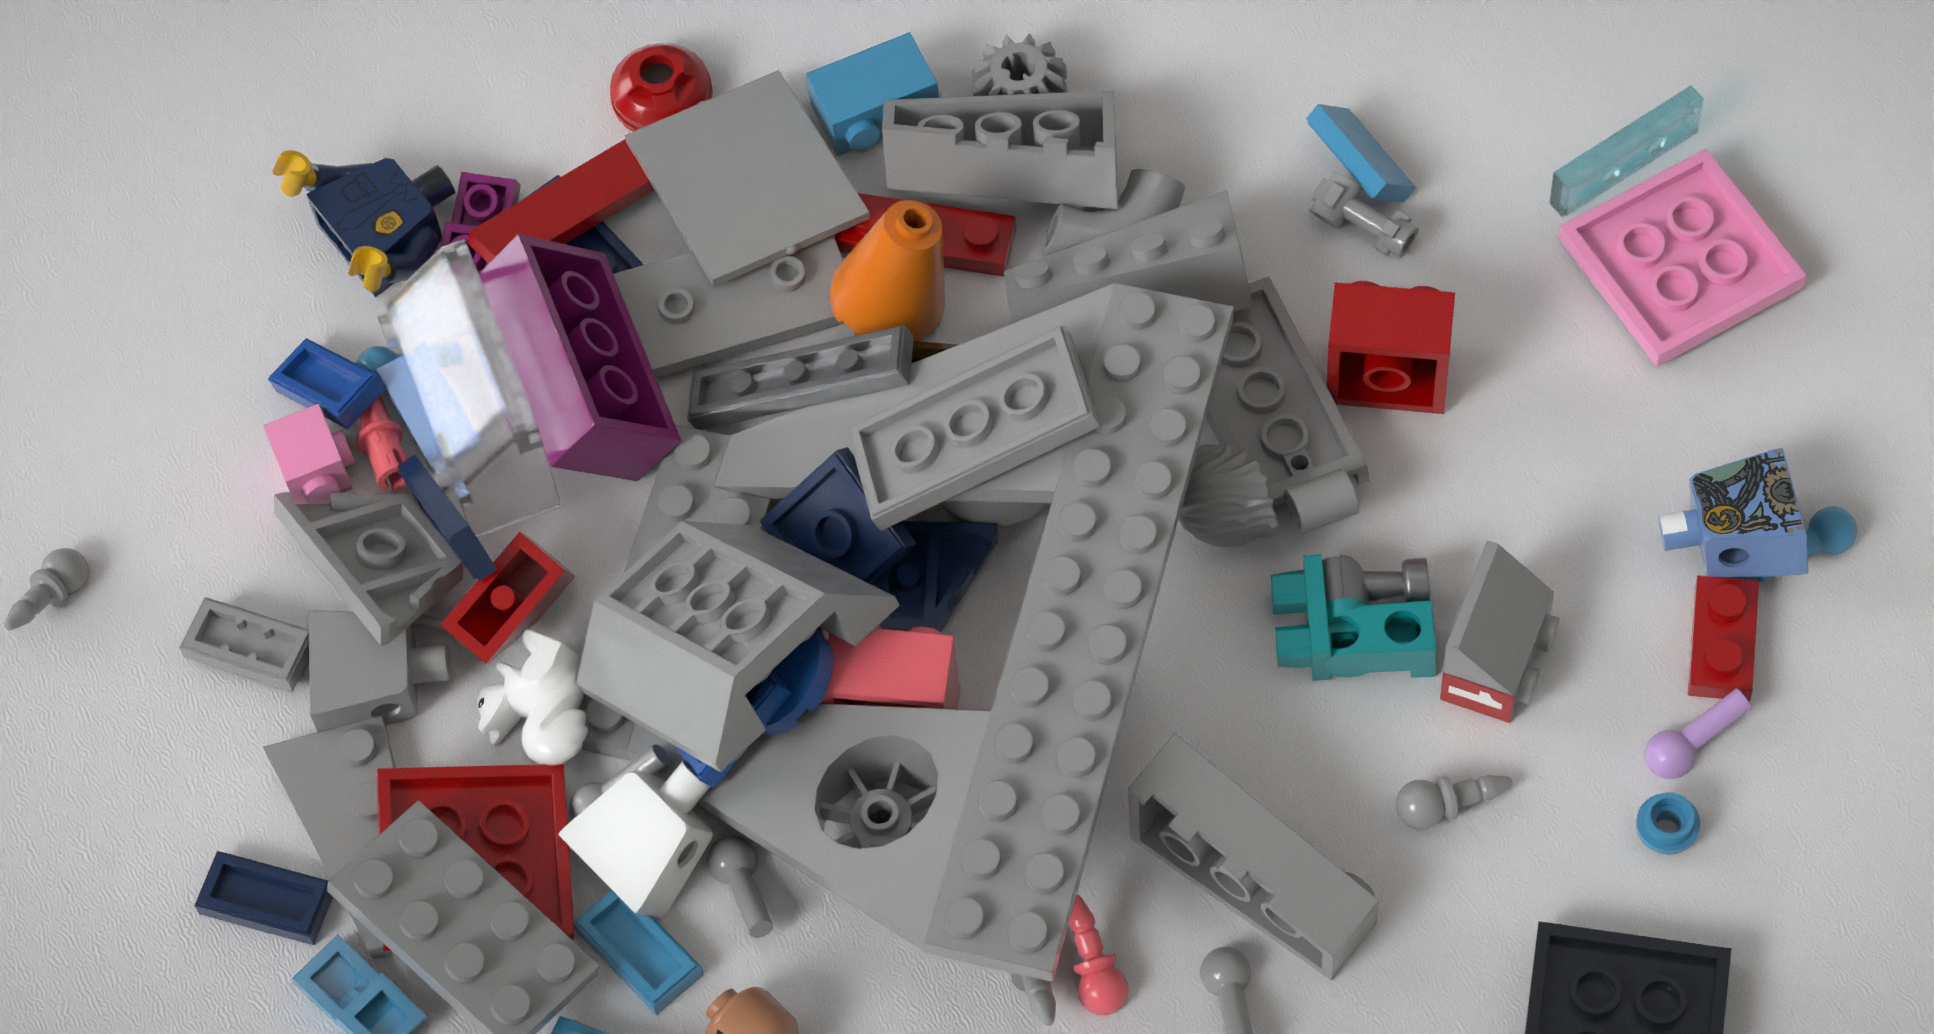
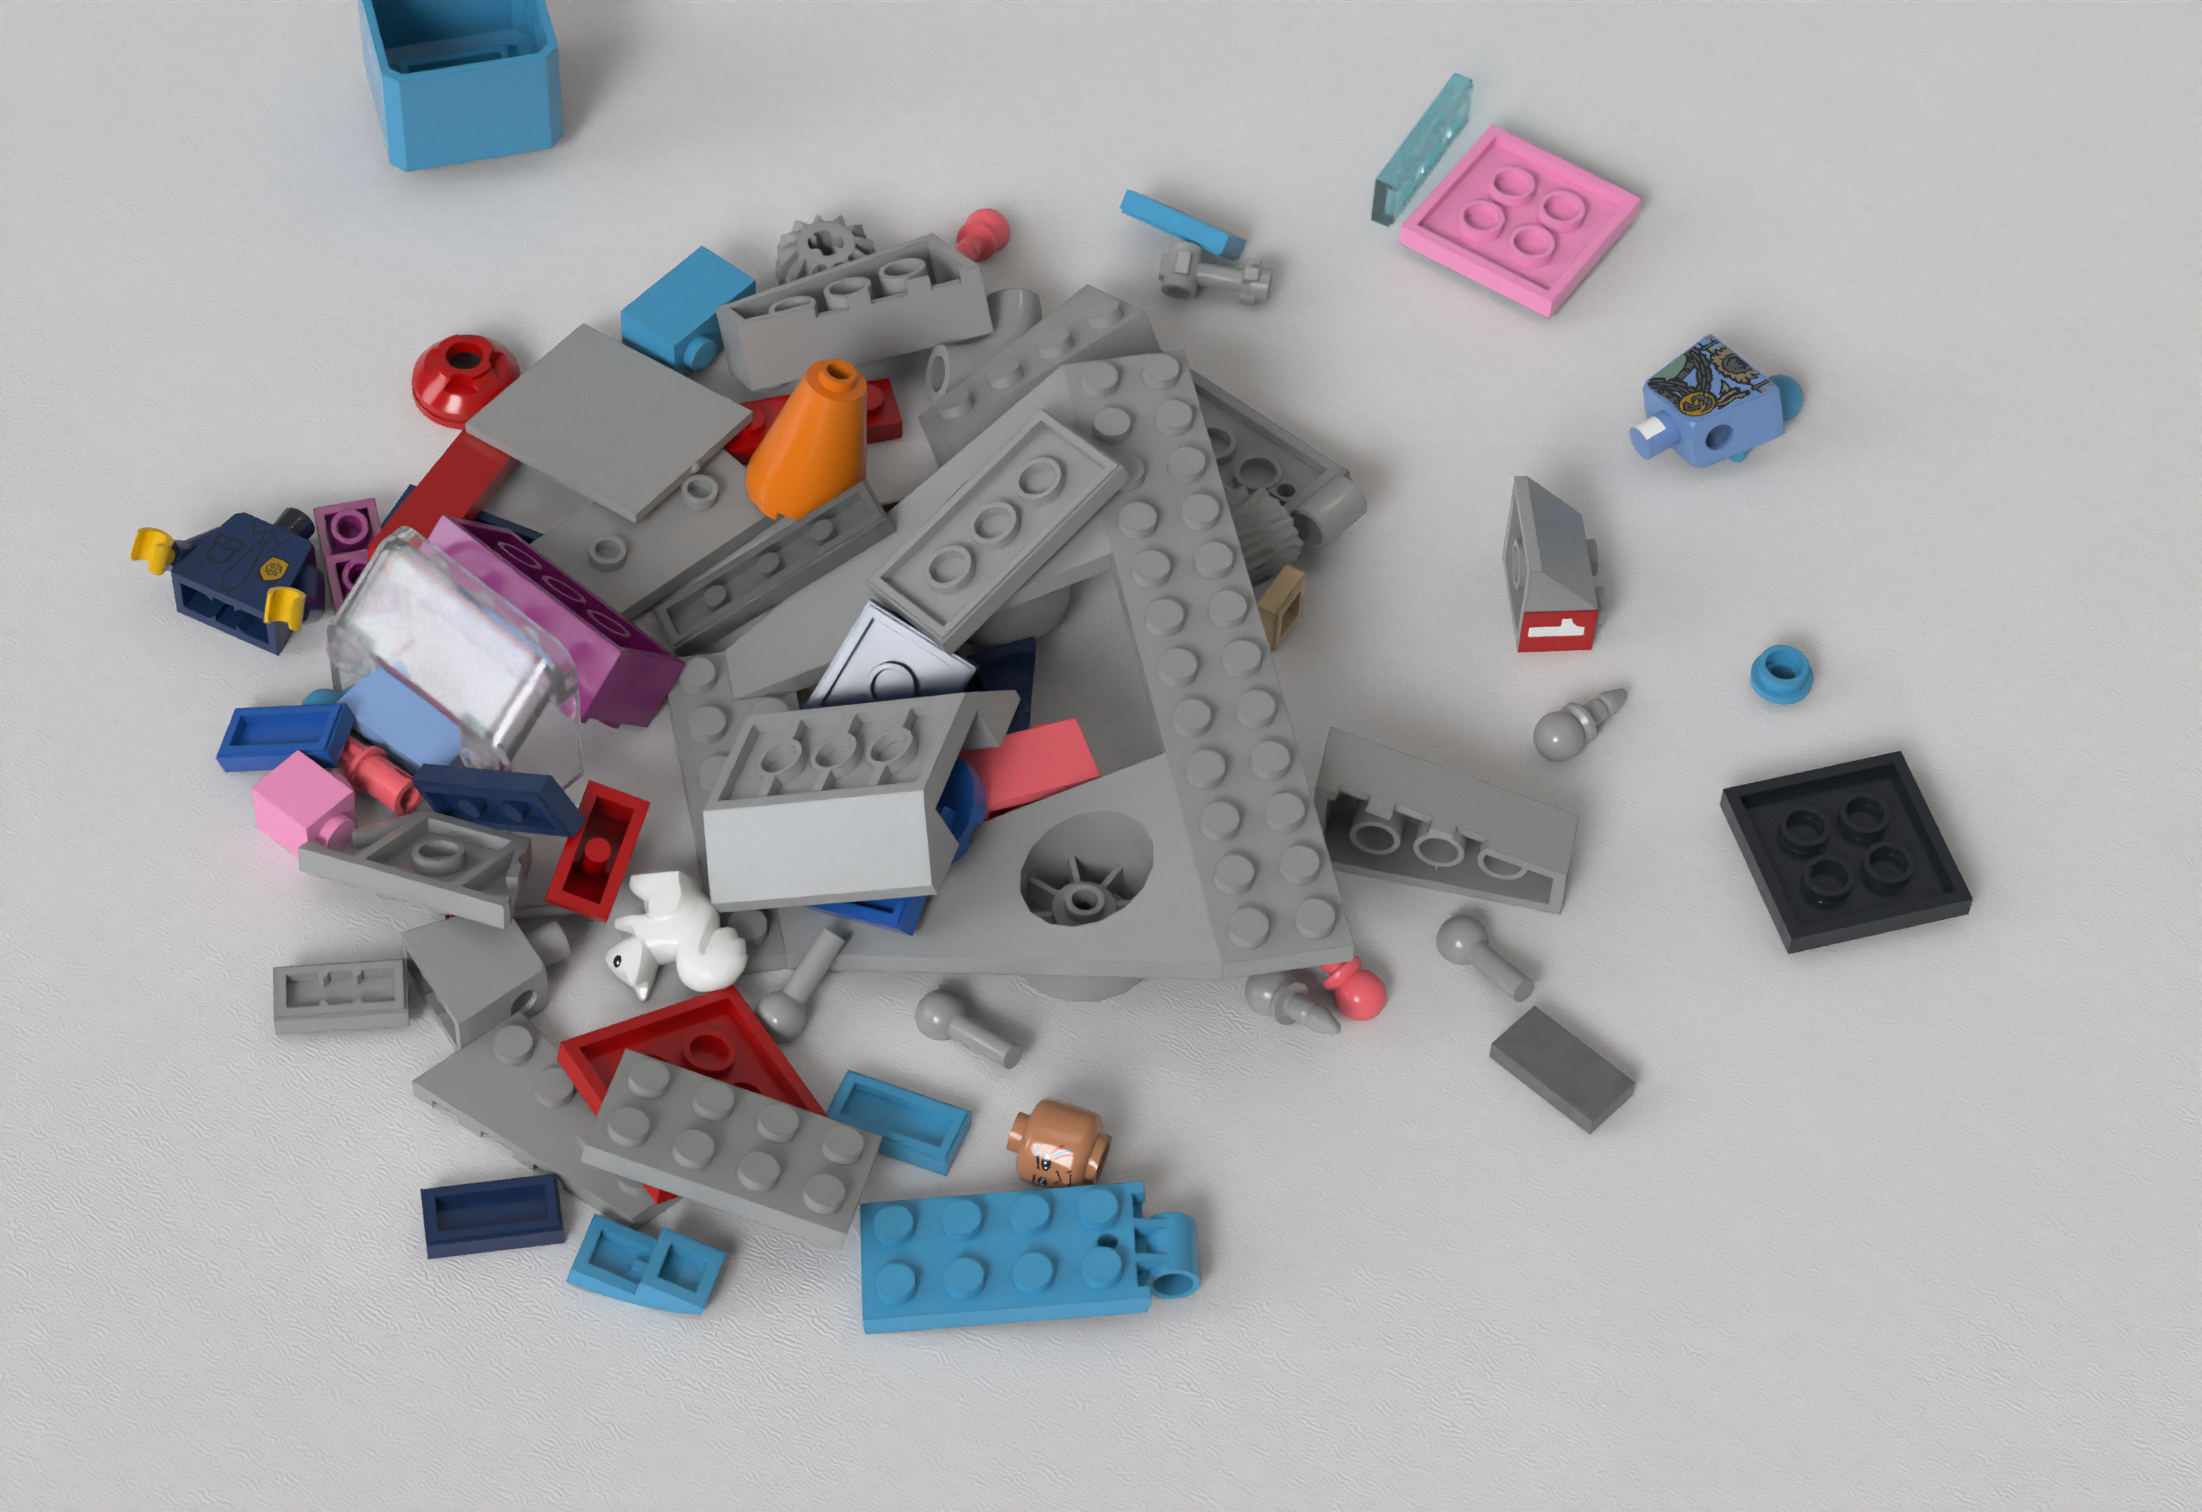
camera: 35 degrees left, 10 degrees down
(60, 575) = (94, 1018): light grey bar -> none
(643, 837) = (856, 1010): white torso -> none
(1182, 98) = (983, 234): none -> coral bar
(1233, 578) = (1282, 604): none -> tan tile
(1344, 629) = (1405, 613): teal hips -> none
(1390, 346) = (1317, 363): red brick -> none
(1672, 752) = (1748, 621): lavender bar -> none
(1723, 637) = (1738, 515): red plate -> none

